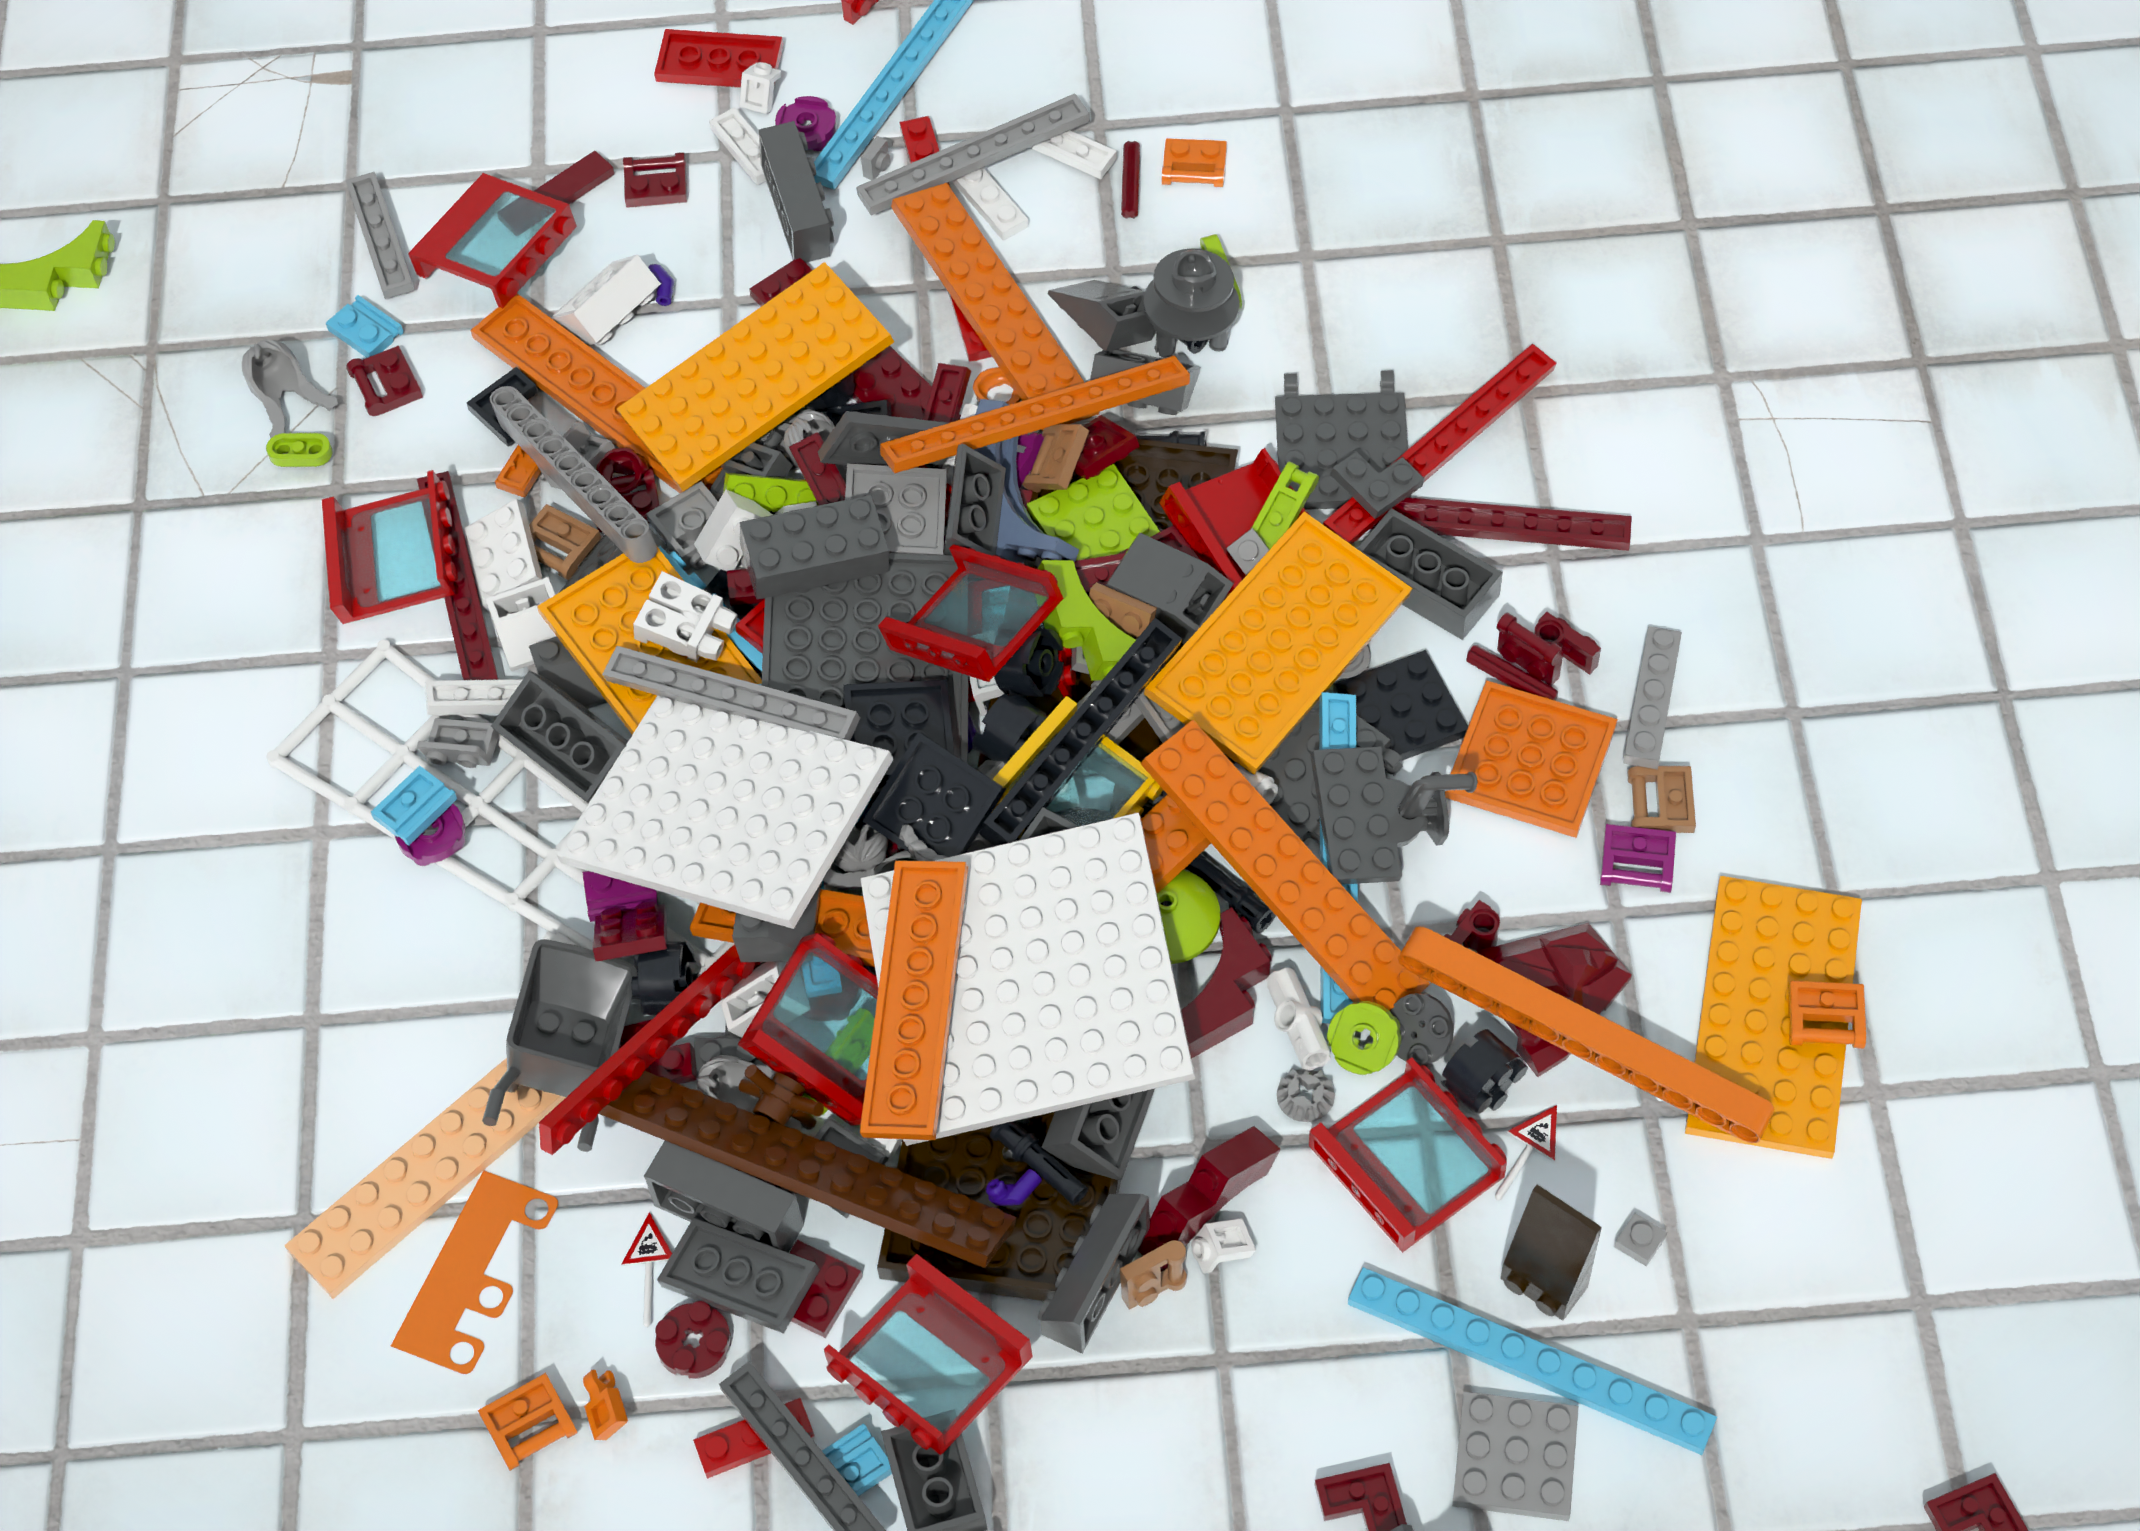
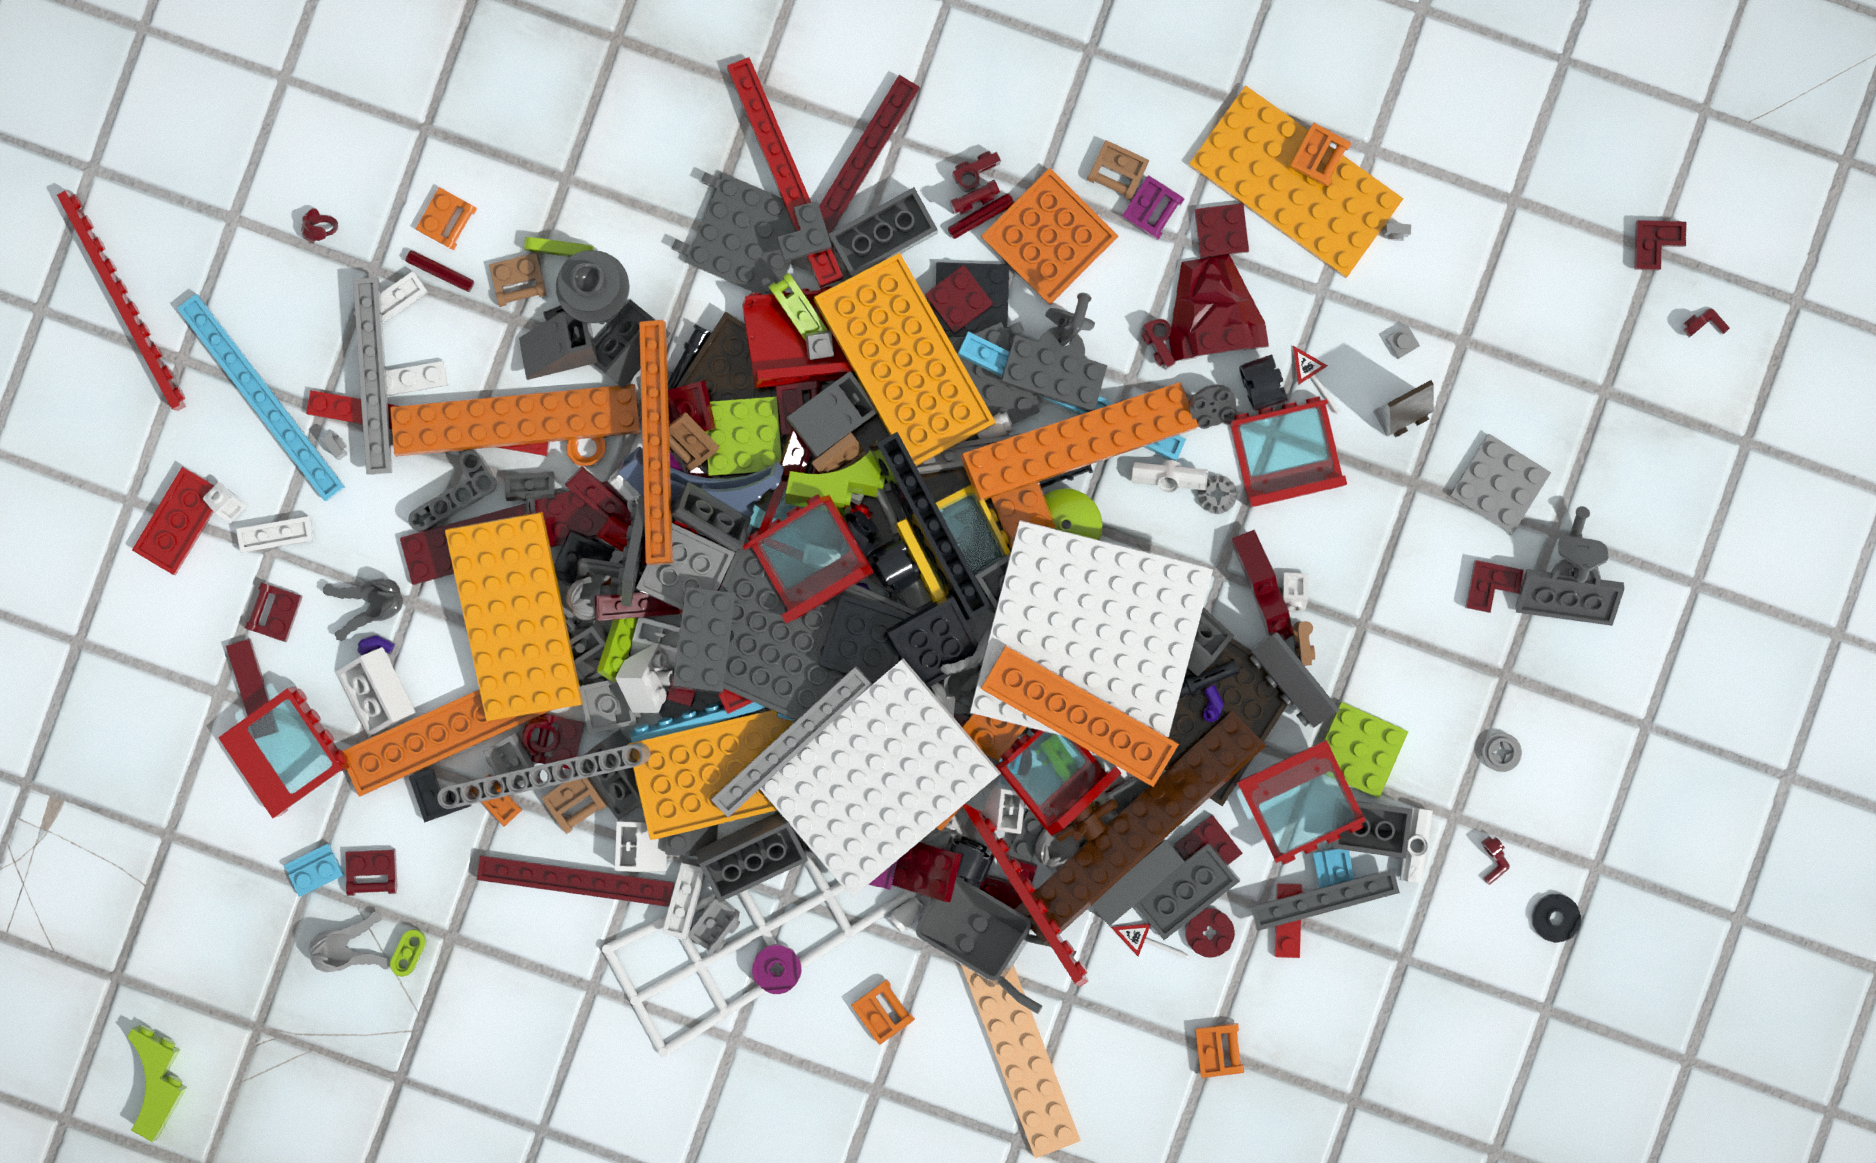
camera: 70 degrees left, 30 degrees up
(380, 235) = (232, 830): light grey plate -> none
(389, 552) = (531, 919): panel -> none
(411, 973) = (876, 1017): none -> orange plate
(414, 805) = (761, 974): medium azure plate -> none
(460, 1268) = (1095, 1056): orange piece -> none
(502, 551) = (571, 843): white plate -> none
(606, 1407) = (1232, 1002): orange plate -> none
(684, 619) = (717, 743): white hips -> none
(714, 269) = (381, 594): none -> dark grey hair
(795, 192) = (352, 520): dark grey brick -> none
(816, 110) = (288, 480): magenta plate -> none
(894, 301) = (451, 496): none -> dark grey beam
(919, 349) = (529, 488): none -> dark grey plate
(1043, 1432) = (1364, 748): none -> lime plate
(1124, 45) = (314, 233): none -> dark red piece
(1159, 239) = (515, 272): none -> medium nougat plate
(1224, 1003) = (1137, 518): dark red arch -> none
(1346, 1047) = (1192, 436): lime plate -> none
(1393, 685) = (959, 299): none -> dark red plate
(1533, 1361) = (1447, 446): medium azure plate -> none
(1586, 1035) = (1273, 312): orange beam -> none
(1652, 698) = (1042, 135): light grey plate -> none
(1657, 953) = (1221, 230): none -> dark red plate
(1785, 1161) = (1397, 231): none -> light grey plate

